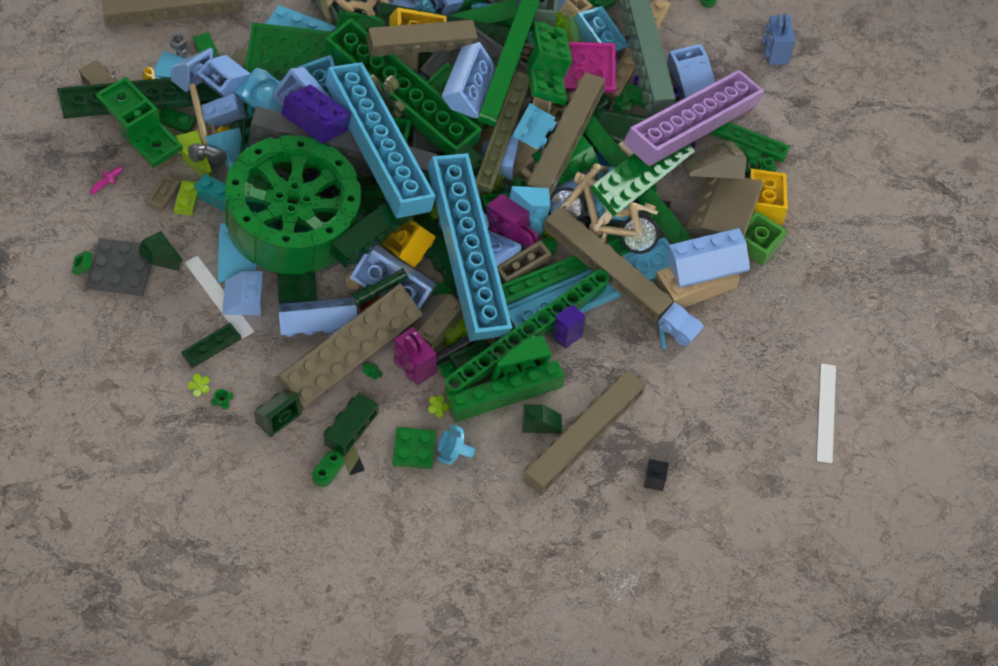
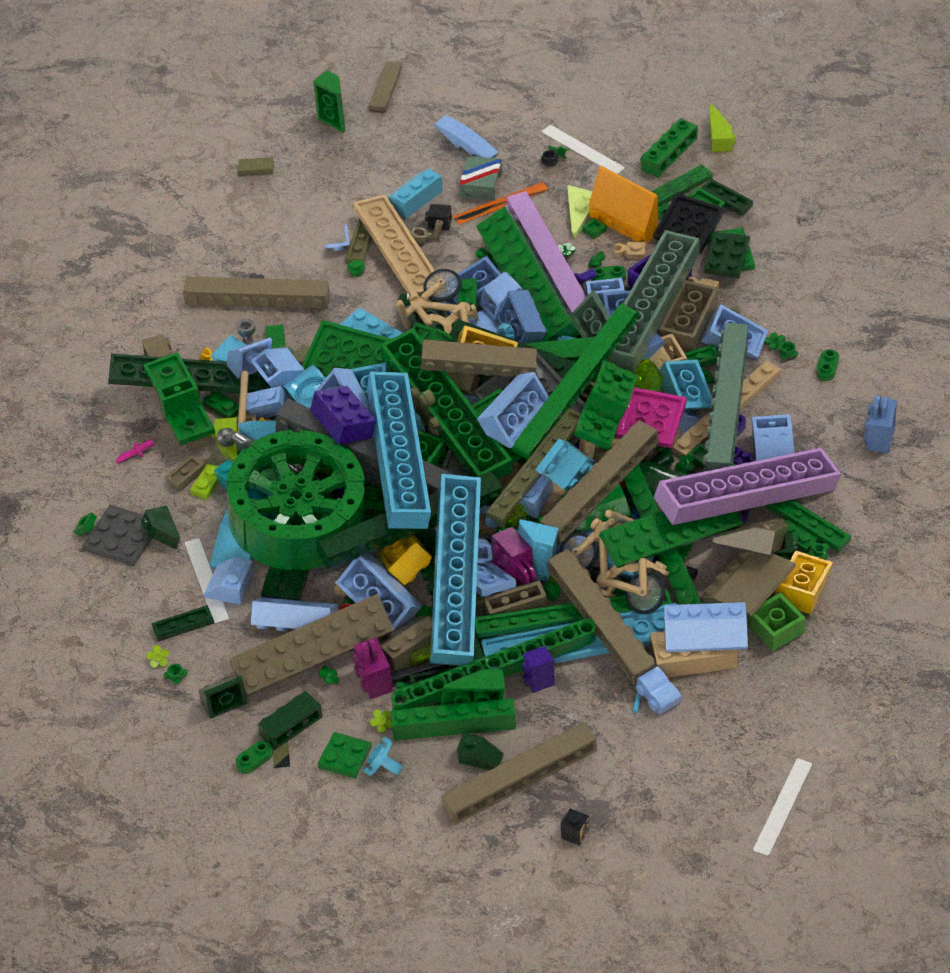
camera: 25 degrees right, 10 degrees down
(371, 291) = (351, 597): dark green pin -> none

